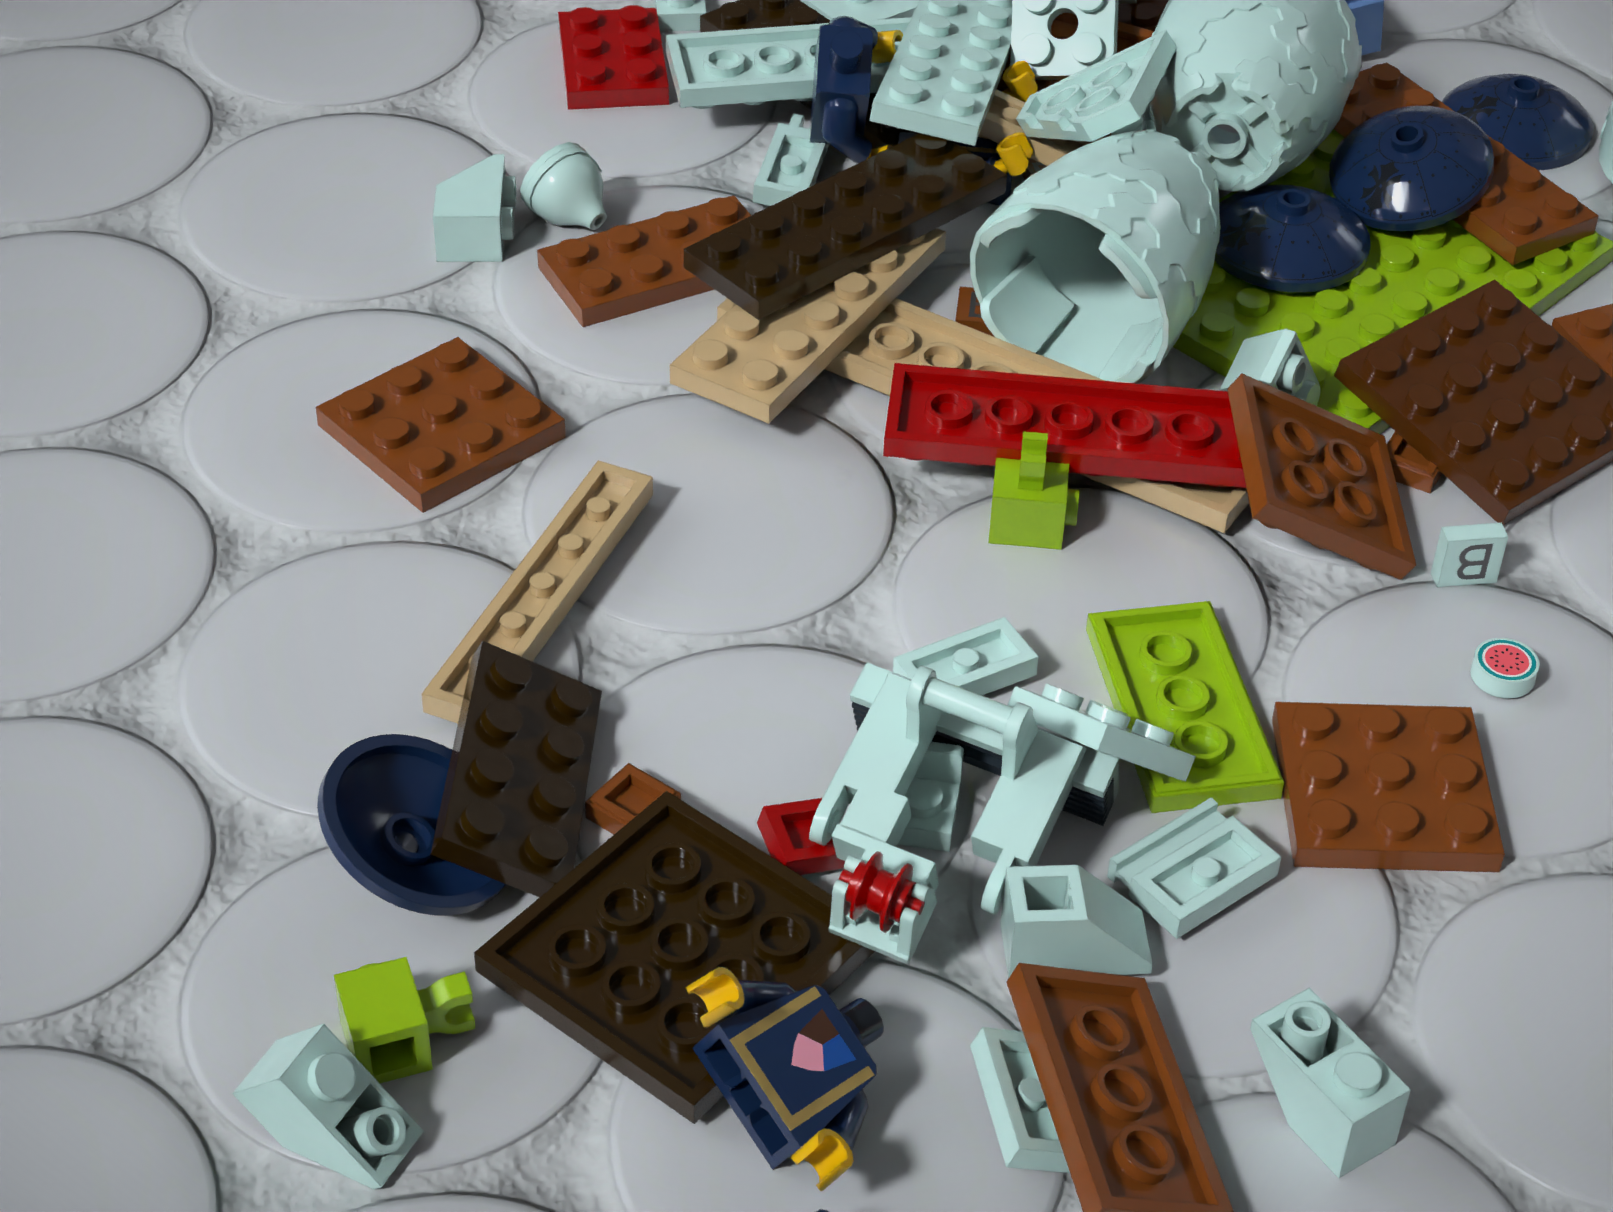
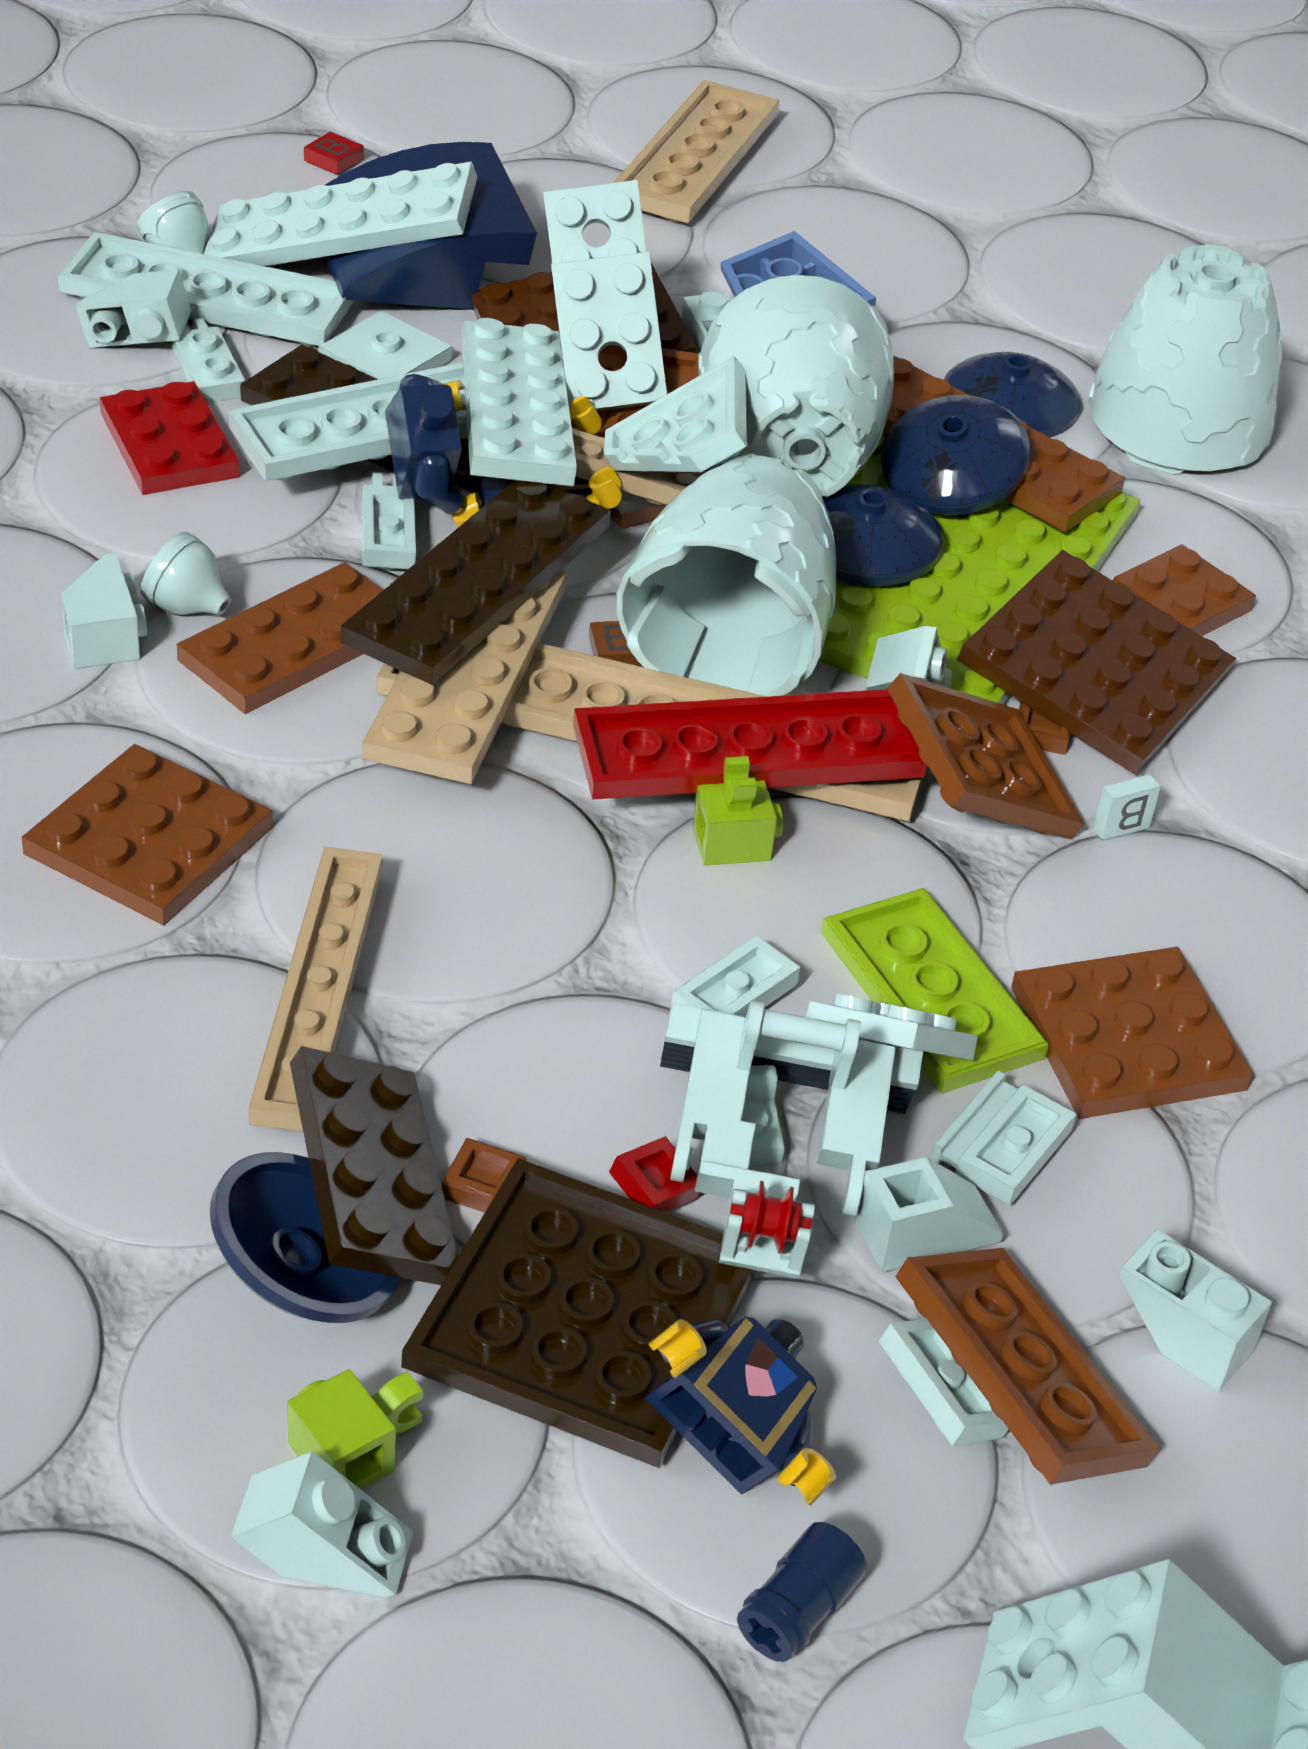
camera: 20 degrees left, 0 degrees up
(1504, 668) = (1188, 905): tile -> none

